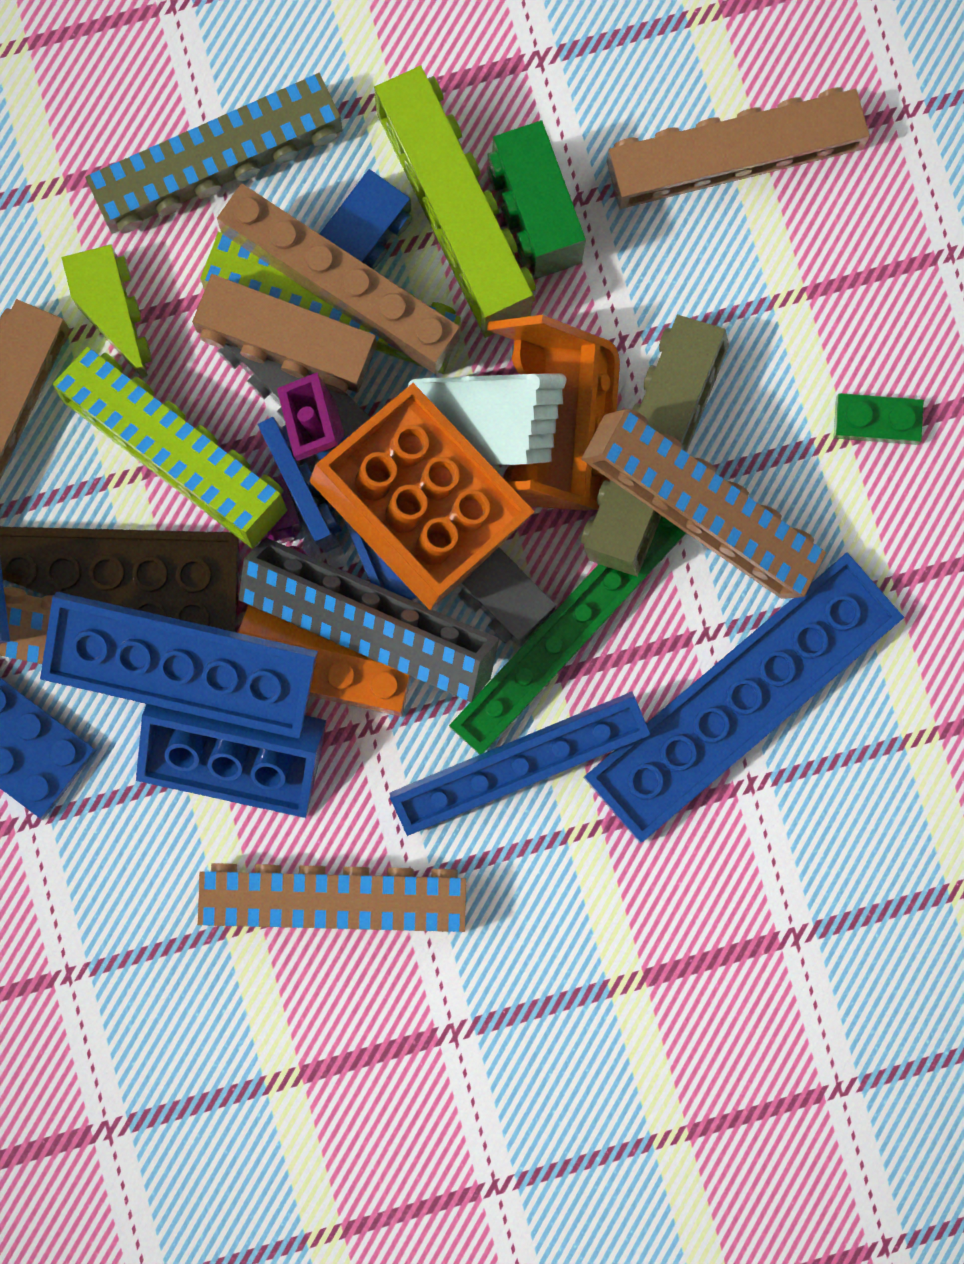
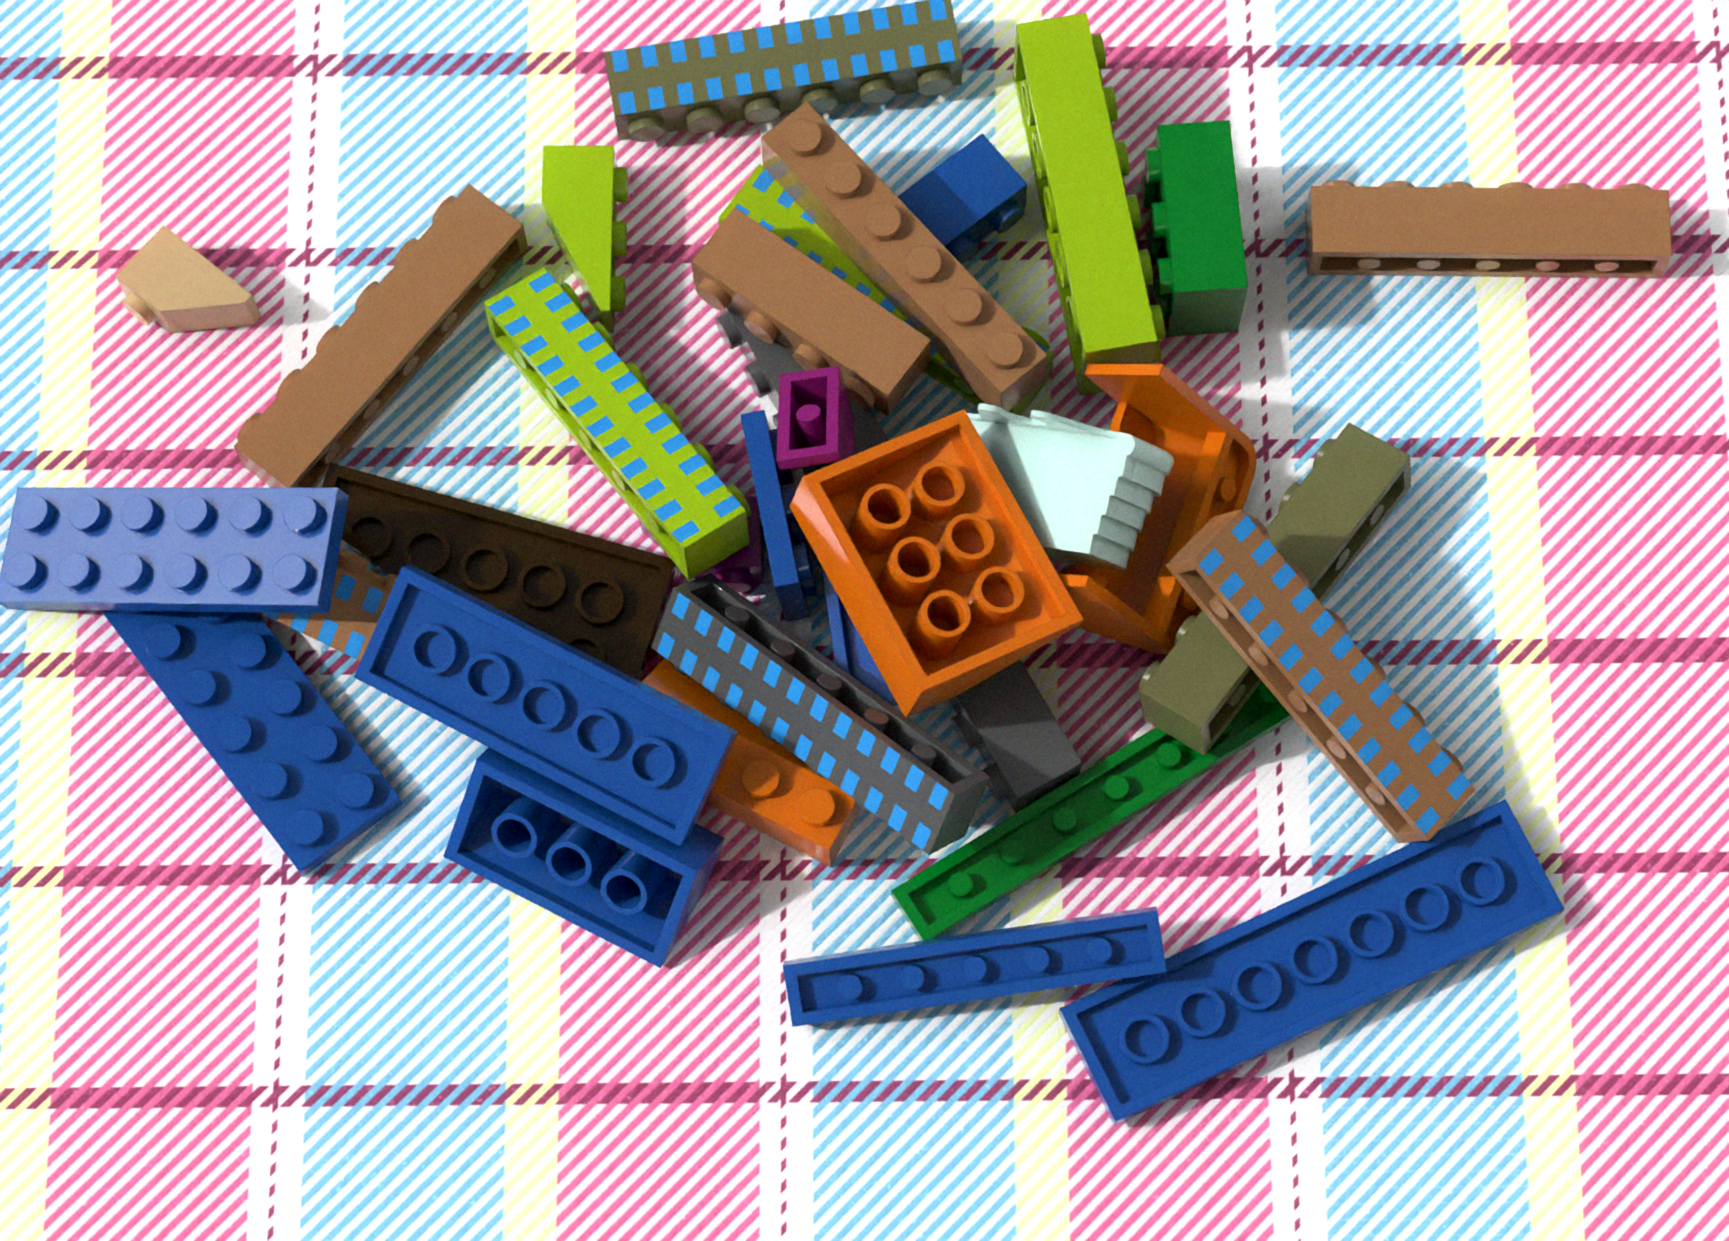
camera: 20 degrees right, 10 degrees down
(332, 900) = (665, 1086): medium nougat brick -> none
(878, 419) = (1594, 635): green plate -> none

